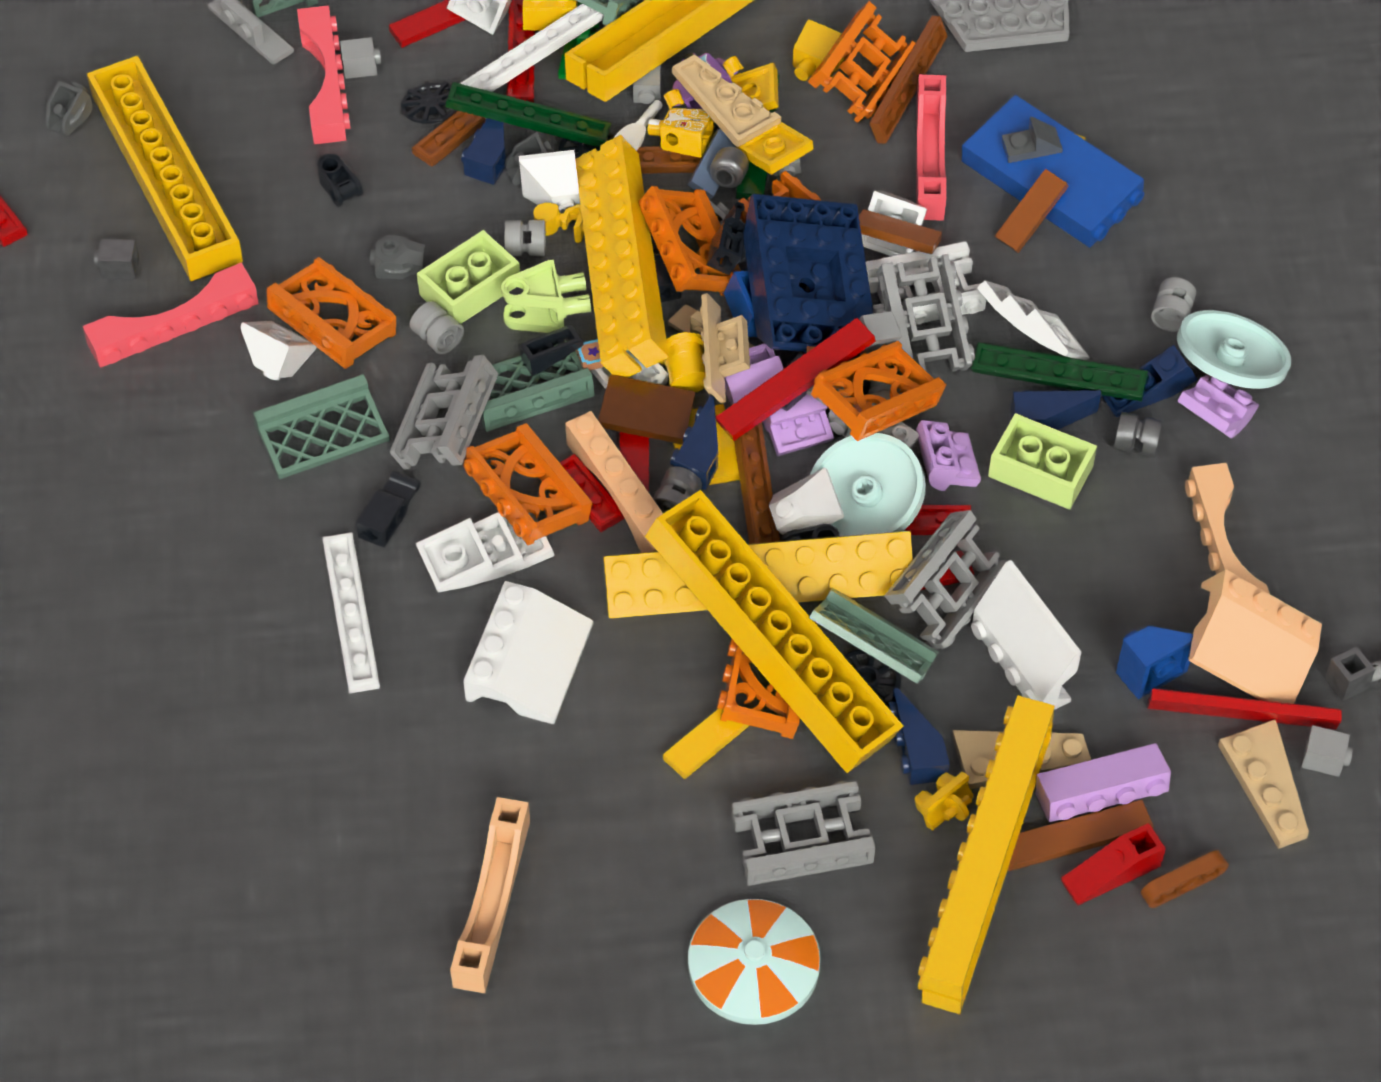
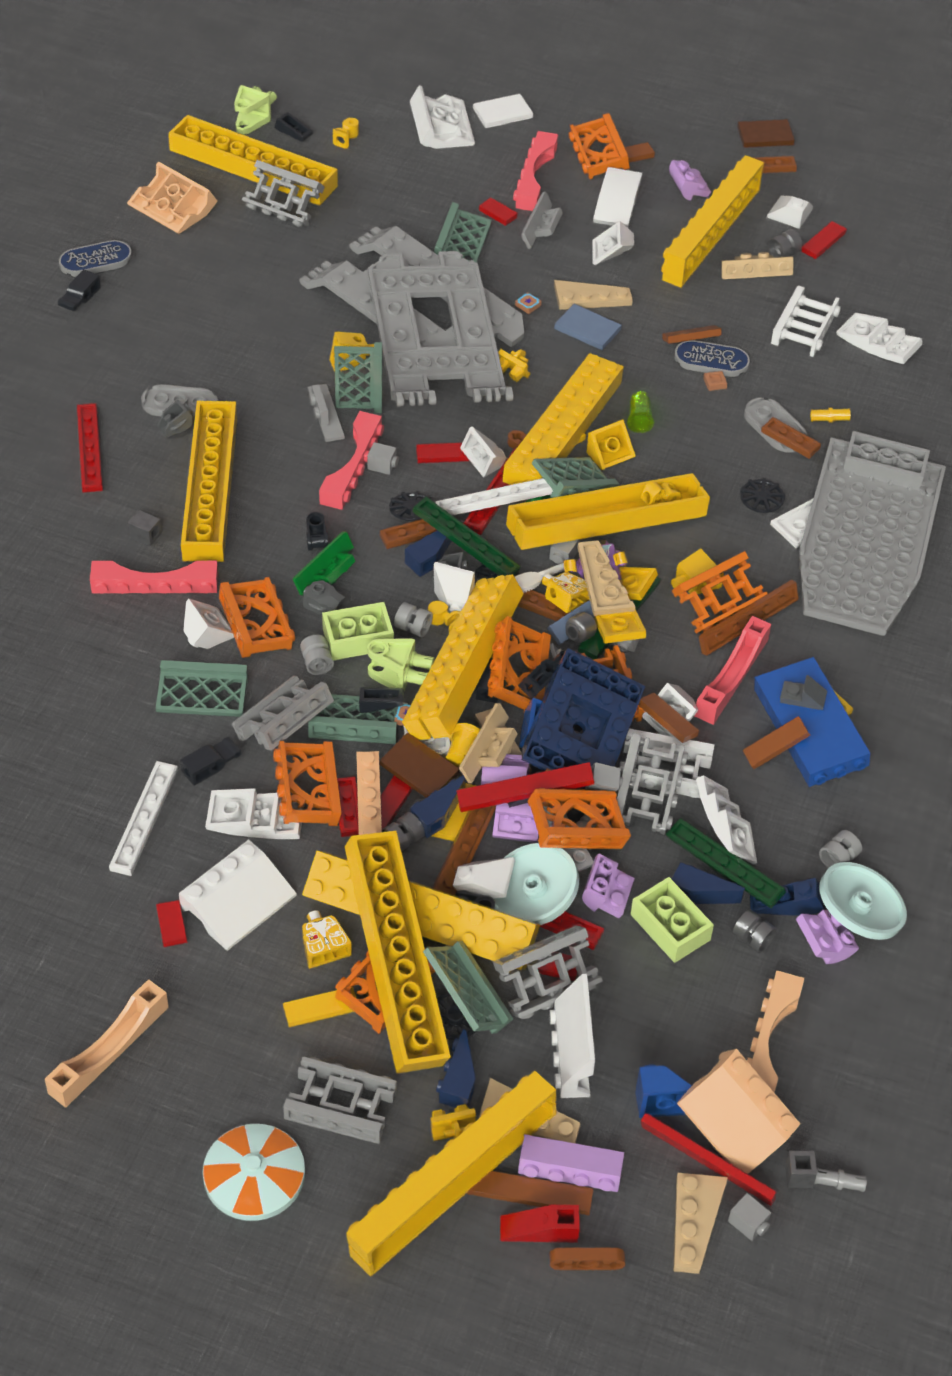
camera: 25 degrees right, 5 degrees down
(31, 88) = (162, 396): none -> light grey tile
(378, 214) = (327, 564): none -> green bracket
(468, 722) = (171, 923): none -> red tile
(664, 659) = (324, 940): none -> yellow torso

